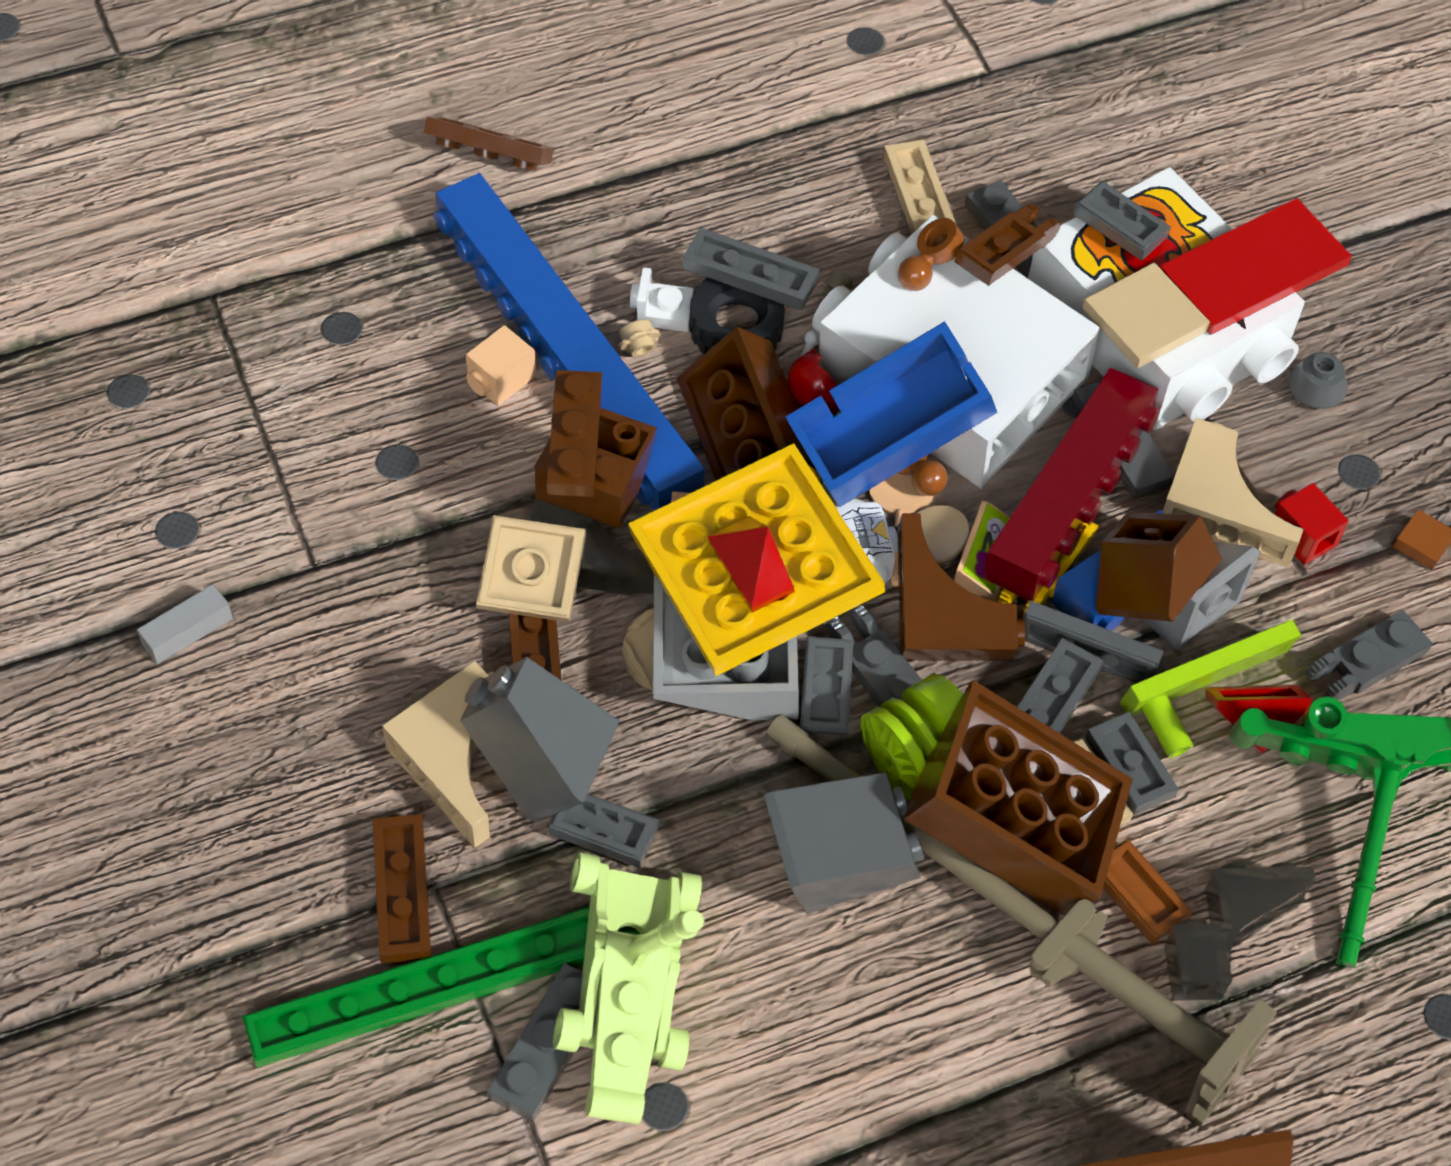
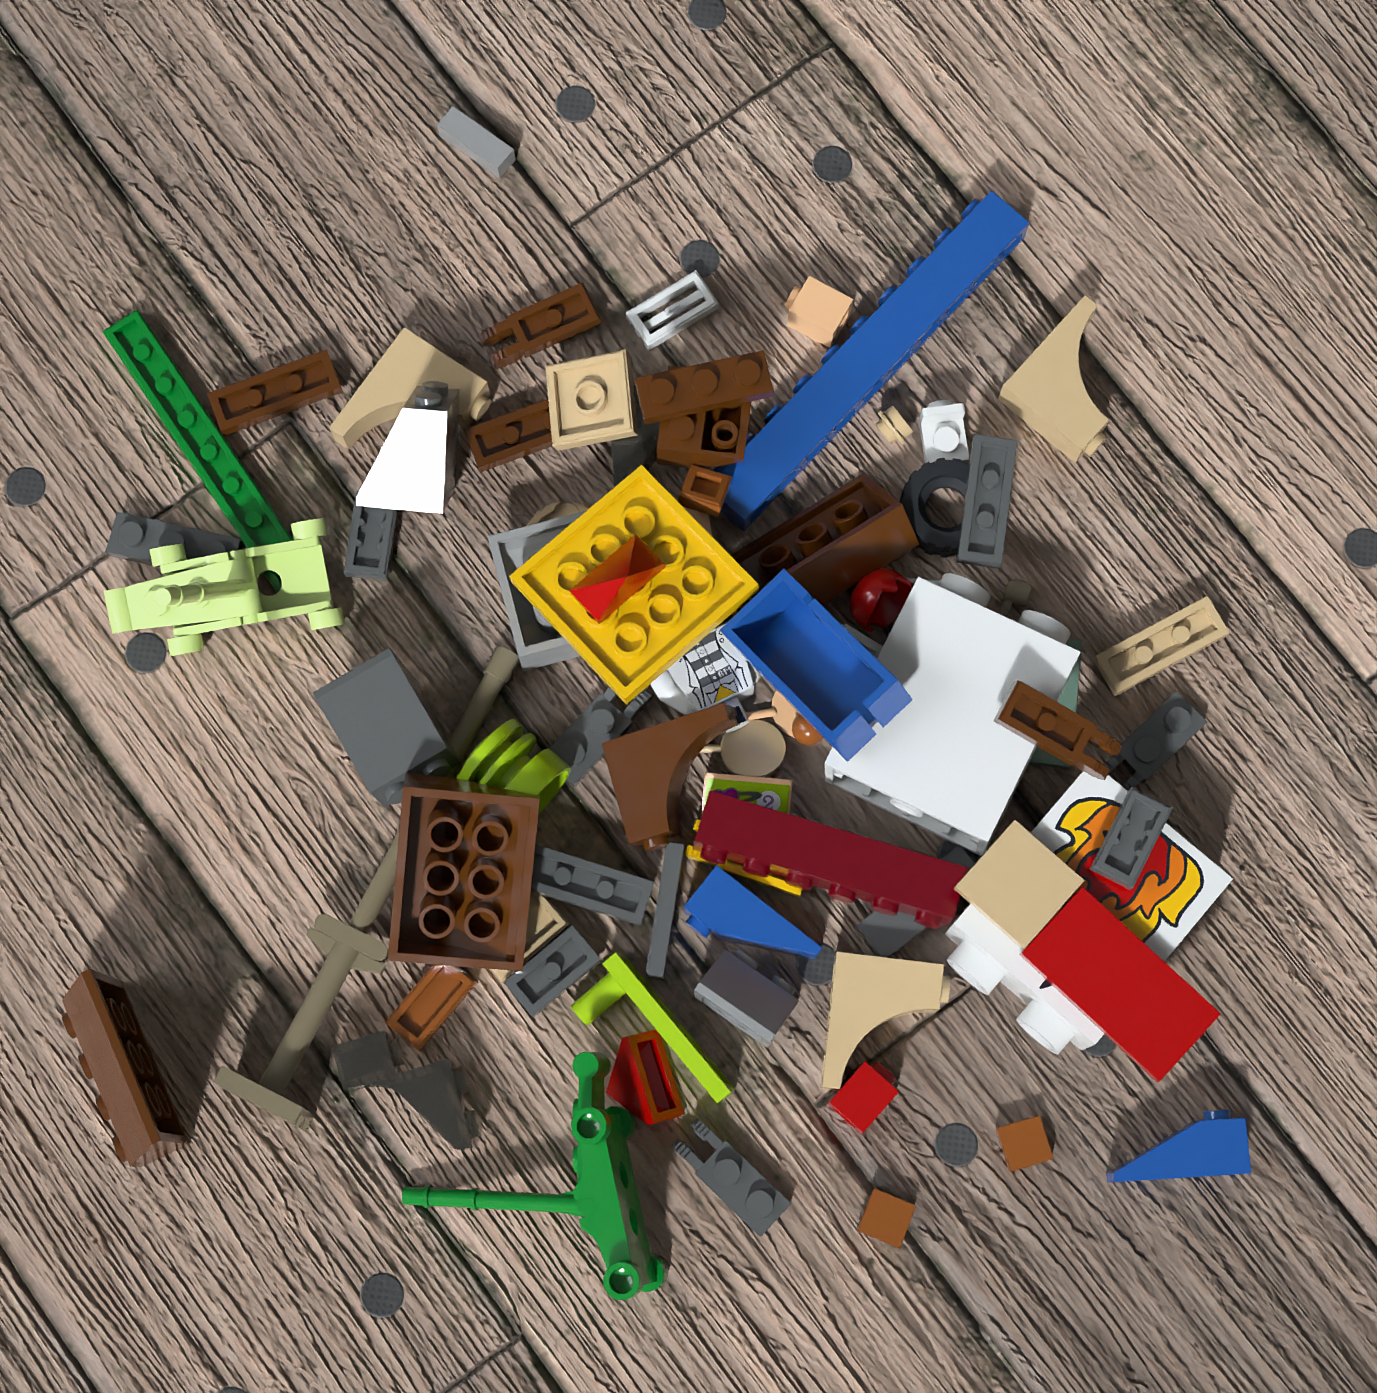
camera: 80 degrees right, 20 degrees up
(421, 607) = (542, 325): none -> reddish brown hinge
(454, 524) = (682, 322): none -> white tile
(488, 142) = (1087, 221): reddish brown plate -> none
(646, 207) = (1051, 393): none -> tan arch
(667, 484) = (704, 490): none -> dark orange tile
(826, 686) = (555, 687): dark grey plate -> none
(937, 245) = (1030, 661): dark orange plate -> none
(1154, 565) = (721, 943): reddish brown slope -> none
(1318, 381) = (1034, 1082): dark grey cone -> none
(1368, 415) = (1024, 1143): none -> dark orange tile
(1397, 290) = (1196, 1150): none -> blue slope

